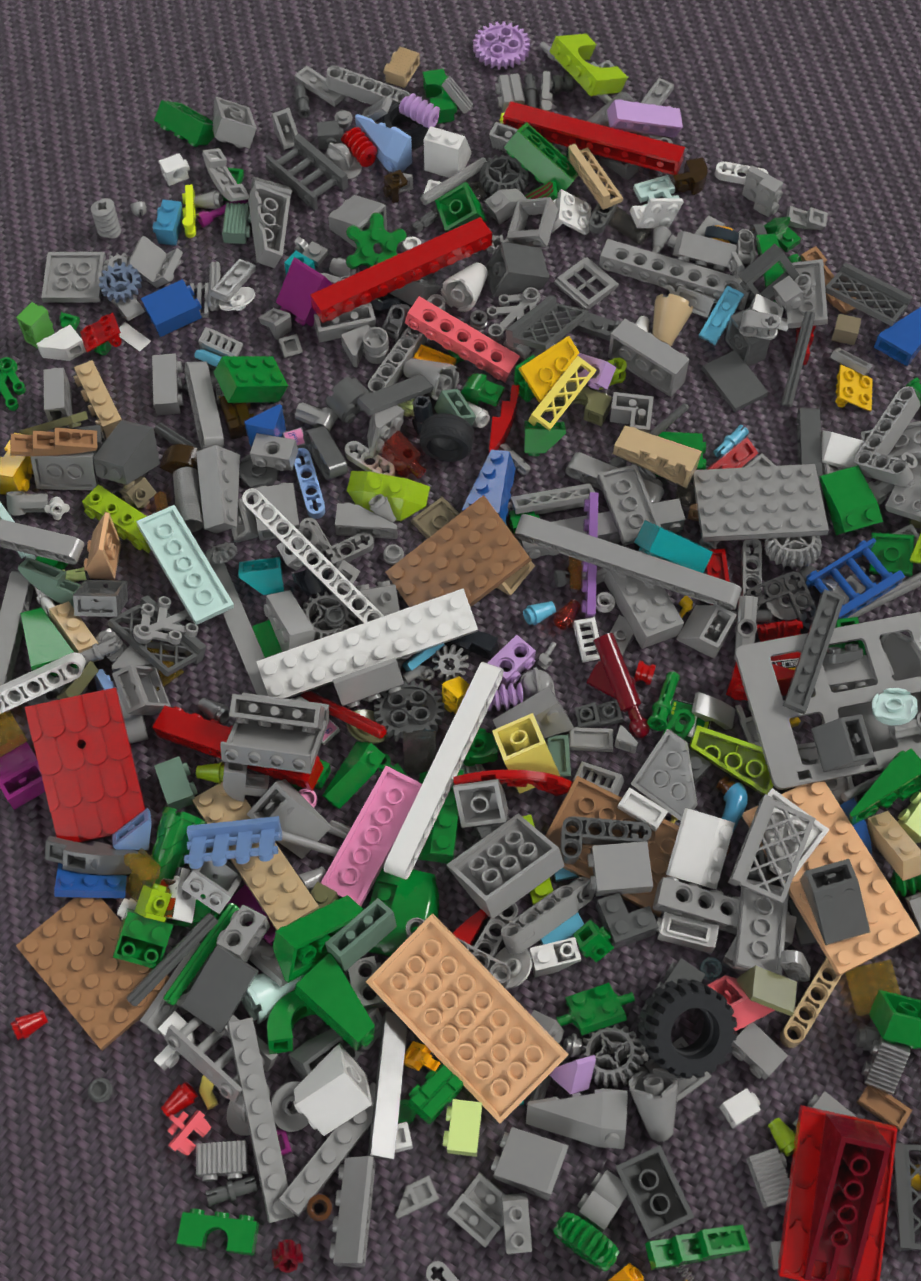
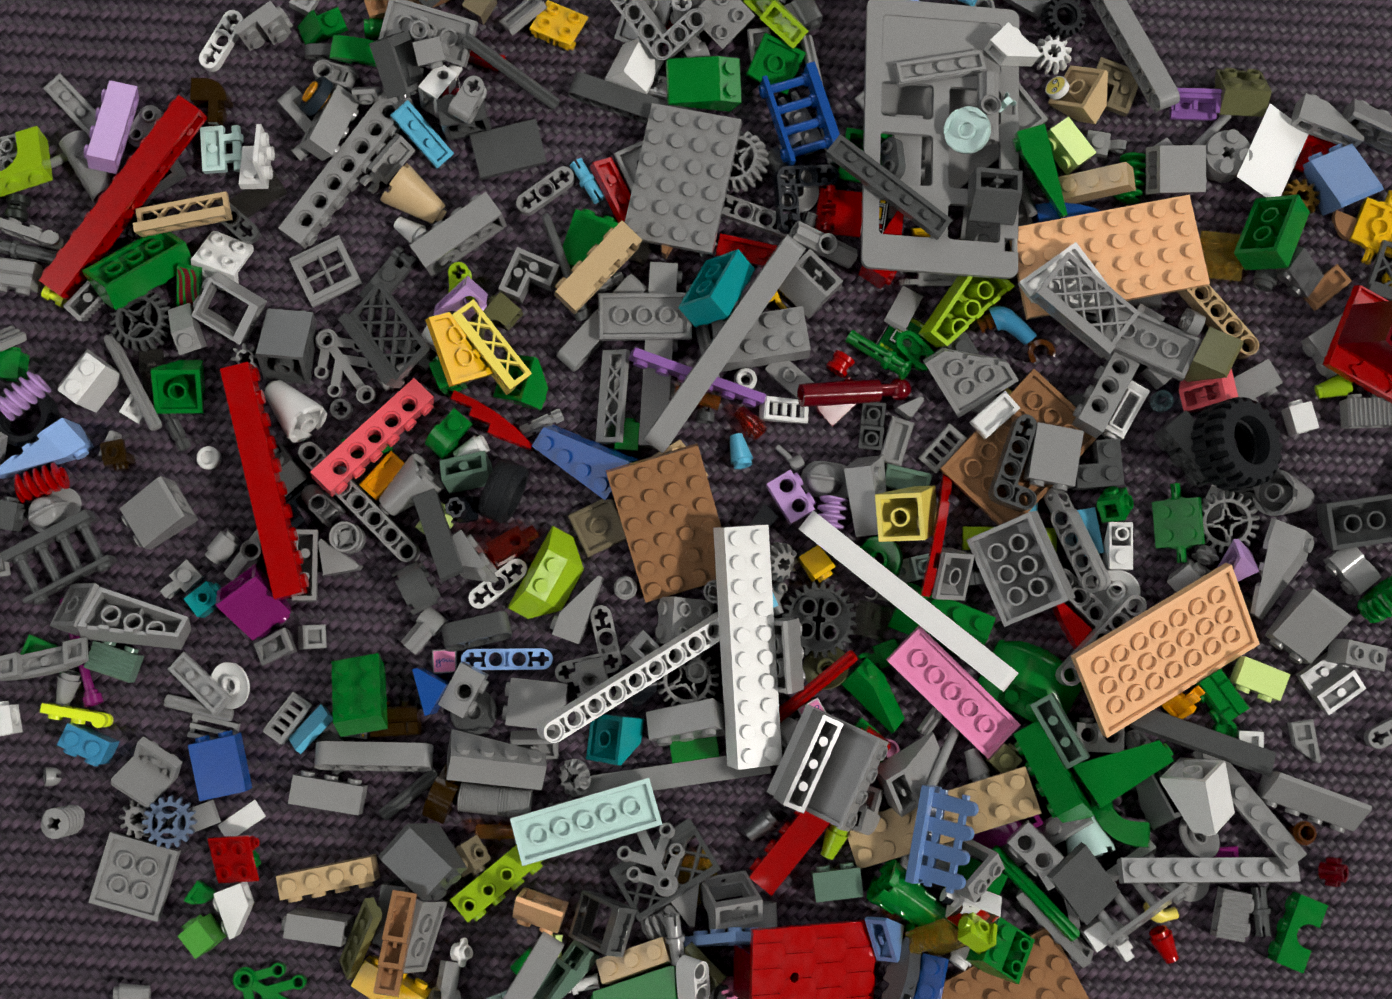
camera: 75 degrees left, 20 degrees up
(171, 959) = (1033, 924): dark grey axle -> none
(196, 1123) = (1194, 944): coral hips -> none
(366, 239) = (201, 512): green plate -> none
(381, 507) = (570, 587): light grey cone -> none
(660, 237) = (287, 165): light grey cone -> none
(700, 848) = (1055, 371): white slope -> none
(711, 422) = (527, 195): none -> light grey beam
(836, 901) = (1148, 262): dark grey slope -> none

